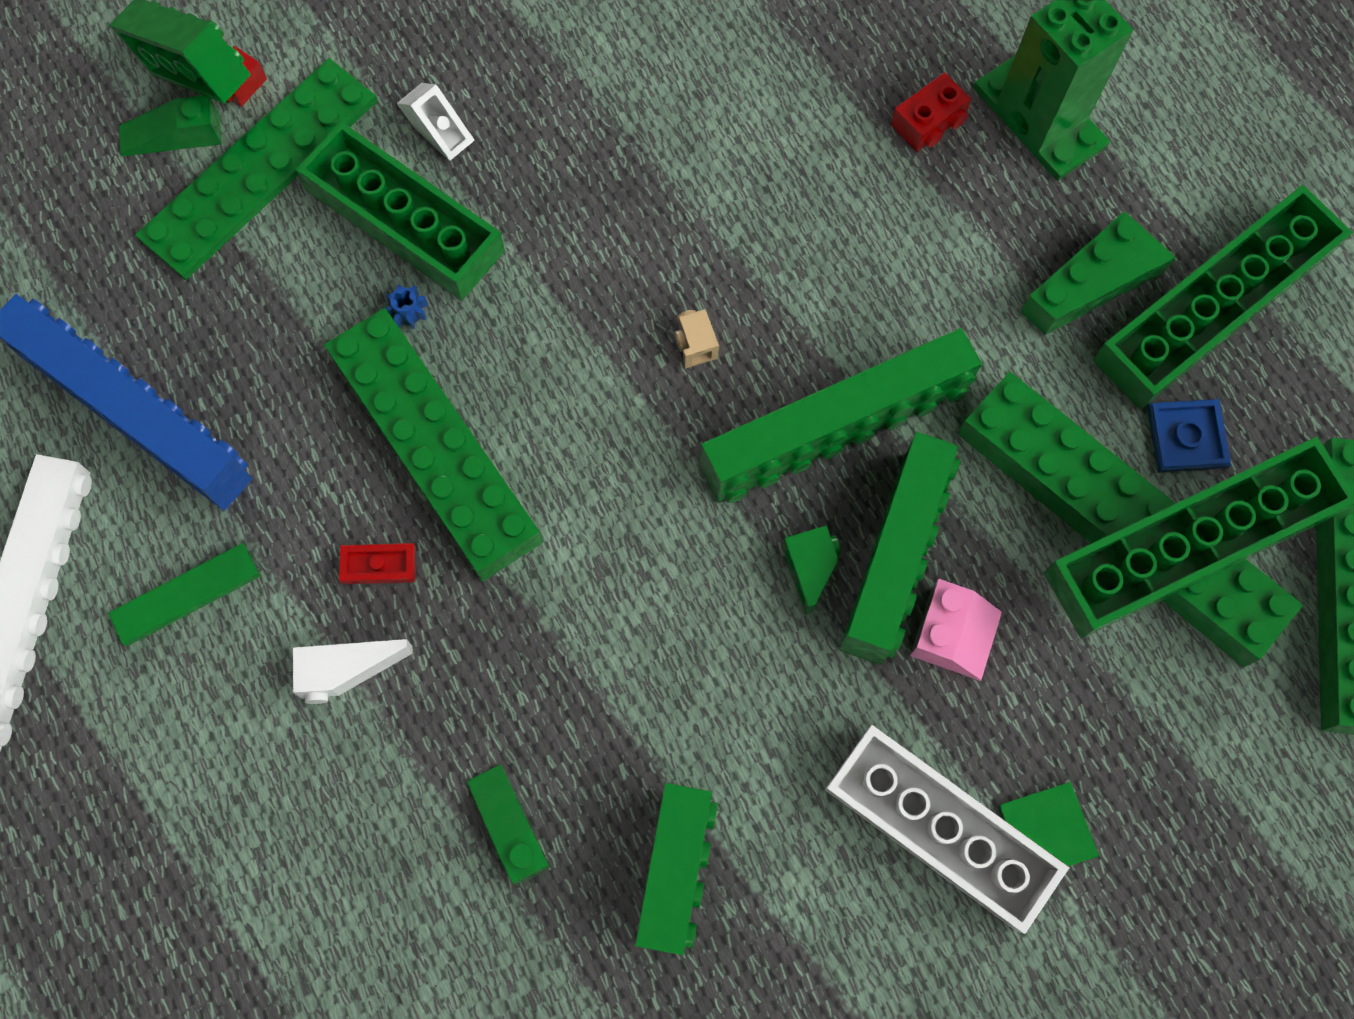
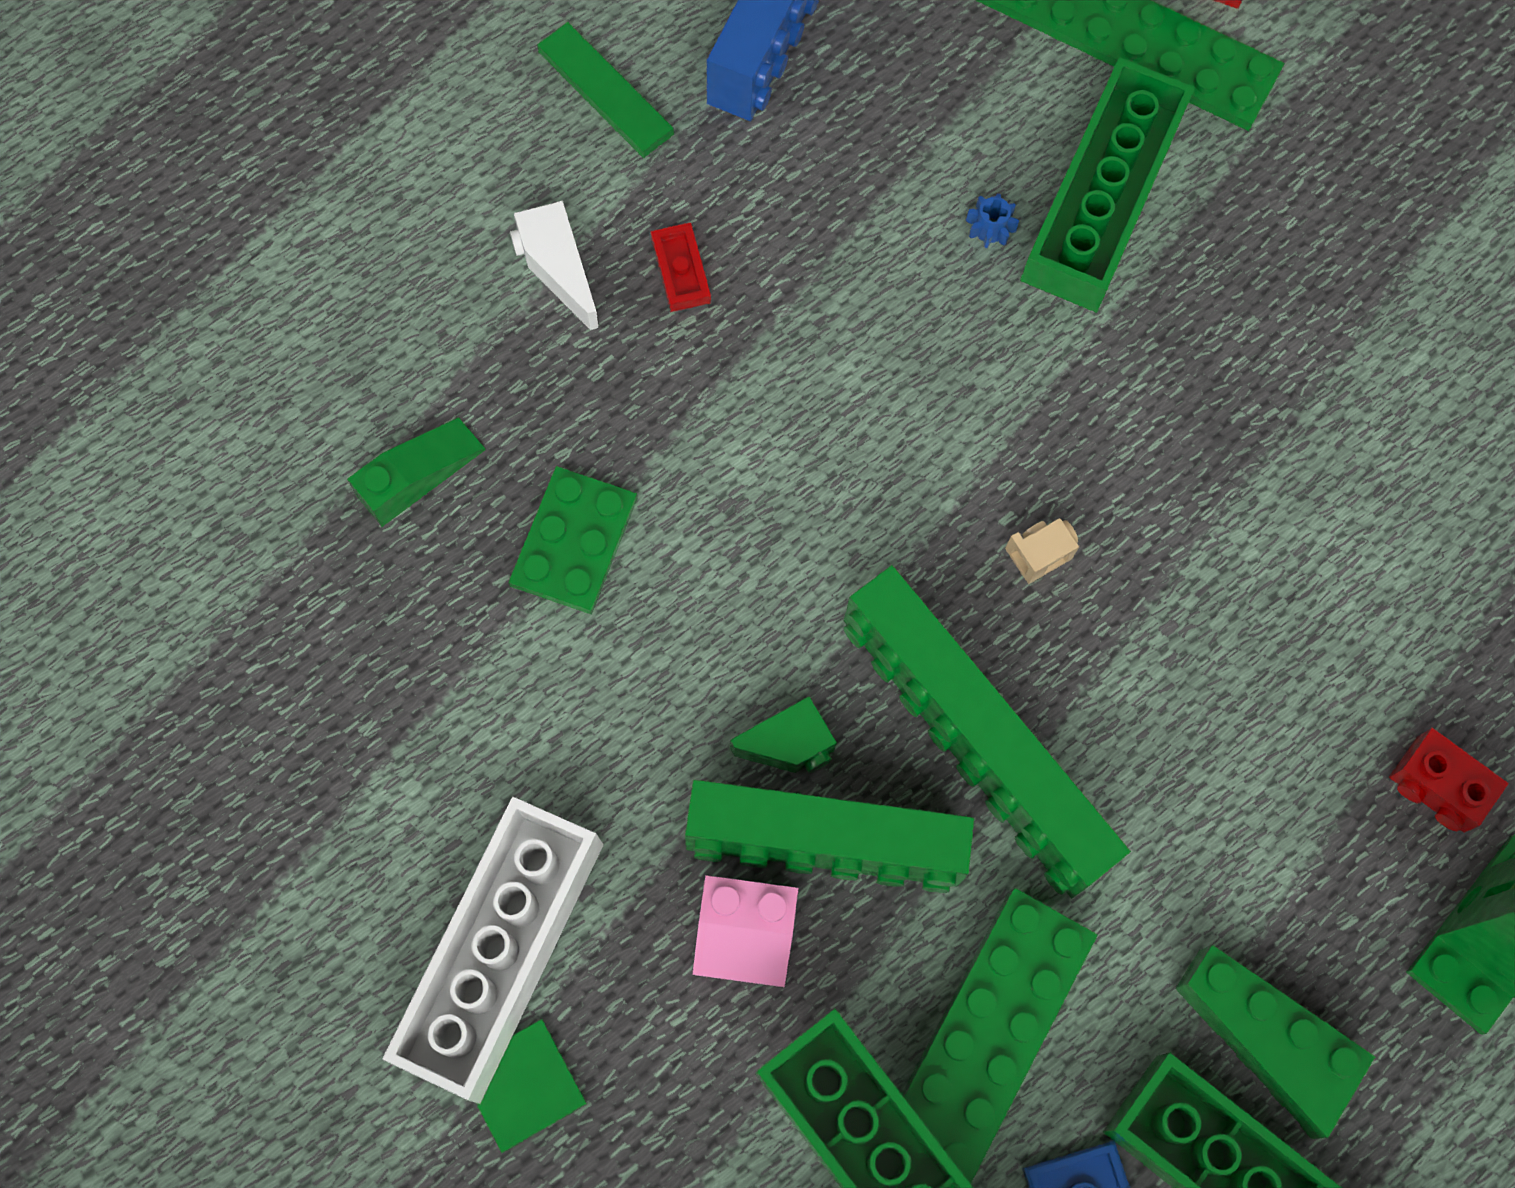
camera: 75 degrees right, 0 degrees up
(434, 444) = (830, 288): green brick -> none
(435, 119) = (1238, 196): white slope -> none
(602, 703) = (573, 540): none -> green plate
(674, 869) = (390, 648): green brick -> none

